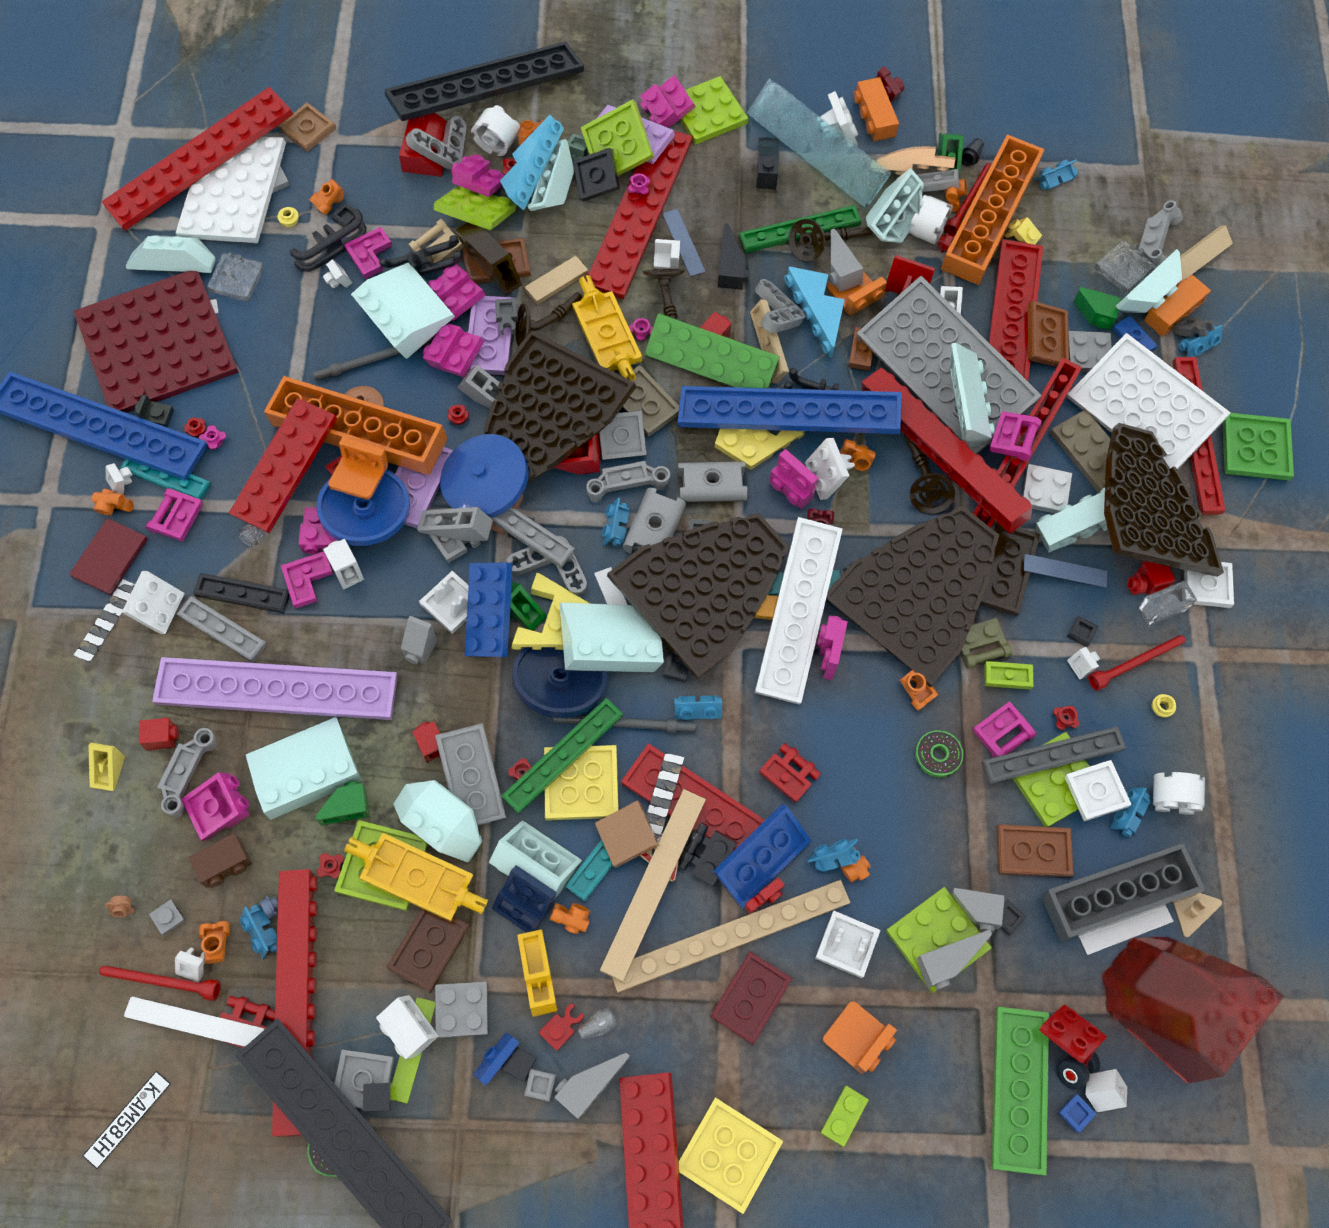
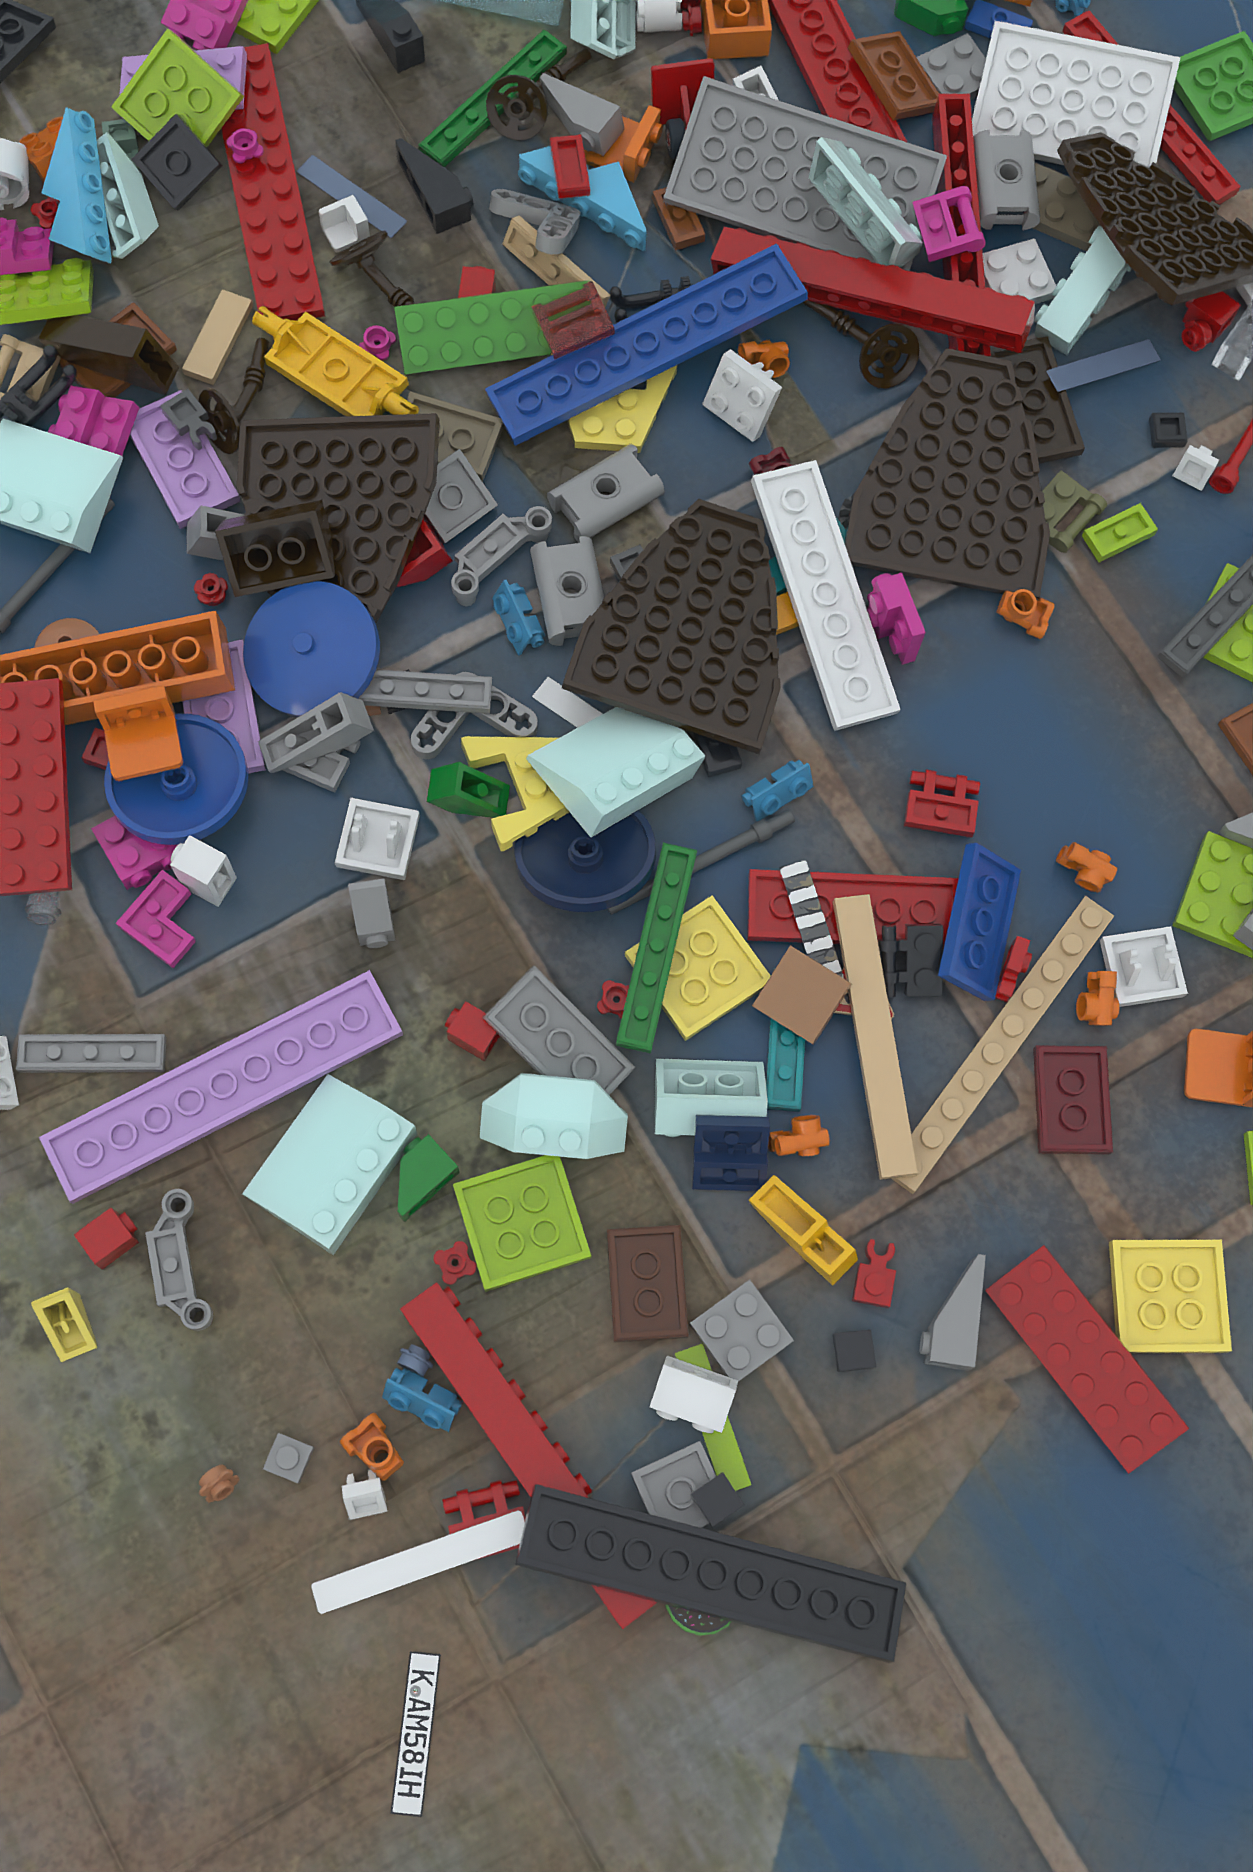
camera: 35 degrees left, 5 degrees up
(208, 989) = (406, 1511): red piece -> none
(216, 805) = (253, 1280): dark pink plate -> none
(220, 861) = (310, 1344): reddish brown brick -> none
(241, 593) = (84, 991): black tile -> none
(416, 876) = (580, 1206): yellow plate -> none
(452, 350) = (147, 506): dark pink plate -> none
(488, 609) = (439, 818): blue plate -> none
(495, 1058) = (825, 1361): blue plate -> none
(500, 409) = (277, 548): none -> dark brown slope
(540, 1085) = (897, 1359): light grey tile -> none
(598, 1024) = (918, 1244): clear cone -> none
(753, 378) = (575, 328): none -> clear red plate
(793, 480) = (711, 432): dark pink plate -> none
(804, 950) = (1099, 1004): none -> orange plate
(813, 287) = (569, 166): none -> red tile
(827, 856) = (1053, 877): dark azure hinge -> none
(948, 744) = (1102, 658): tile -> none
(999, 725) = (1147, 601): dark pink plate -> none
(1068, 442) = (1006, 180): none -> light grey piece
(1068, 711) = (1222, 540): red plate -> none

